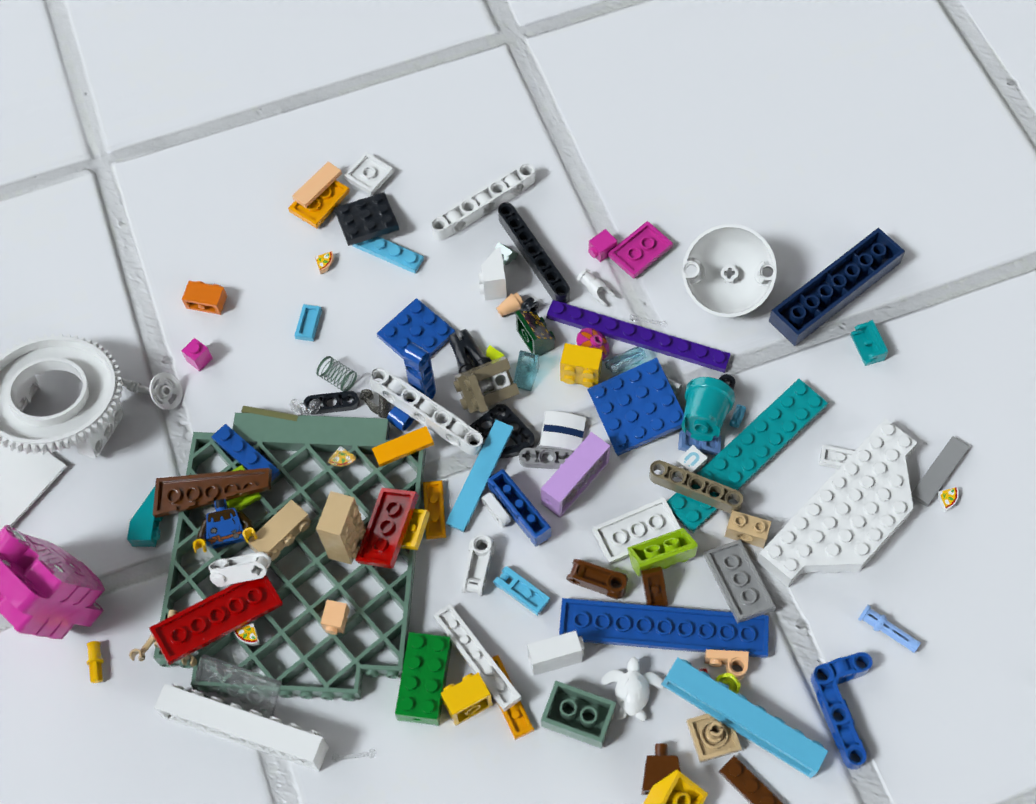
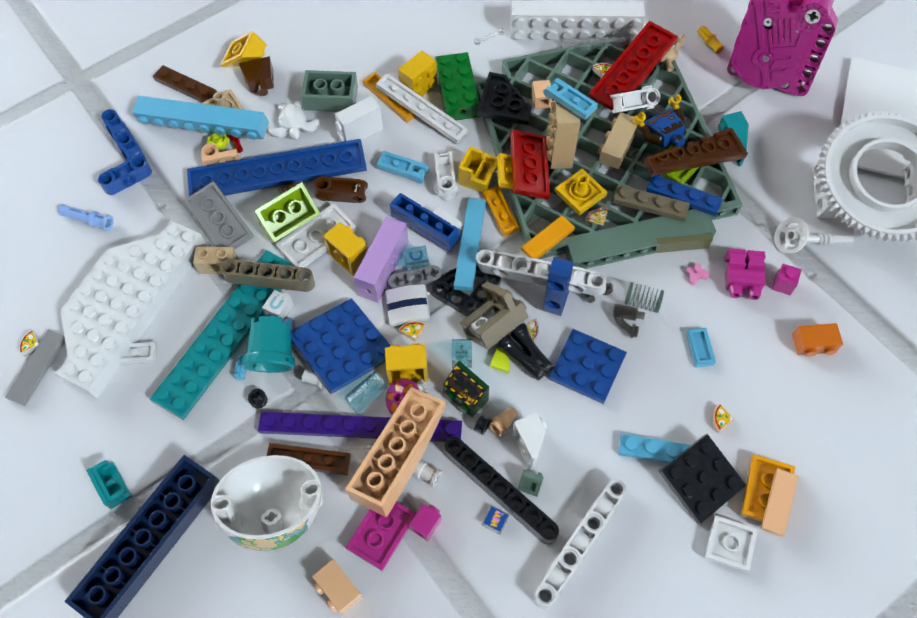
camera: 160 degrees right, 0 degrees up
(234, 369) = (741, 279): none -> dark pink hips
(273, 389) = (696, 273): none -> bright pink piece
(283, 456) = (651, 203): none -> dark tan plate
(300, 408) = (654, 252): clear plant -> none
(328, 514) = (570, 98): none -> medium azure plate
(337, 396) = (640, 268): black beam -> none
(349, 481) = (580, 191): none -> yellow plate
(361, 369) = (623, 312): none -> clear smoke plant
(381, 624) = (503, 101): none -> black plate
(441, 552) = (476, 169): none -> yellow plate
(450, 378) = (533, 328): none -> clear tile
(539, 472) = (415, 258): none -> clear light blue brick
(545, 236) = (495, 519): none -> tile
(566, 406) = (412, 329): none -> tile
(607, 495) = (345, 247): none -> yellow brick
(610, 291) = (396, 452): none -> light nougat slope
(685, 219) = (337, 587): none -> light nougat brick
(690, 319) = (317, 459): none -> reddish brown plate

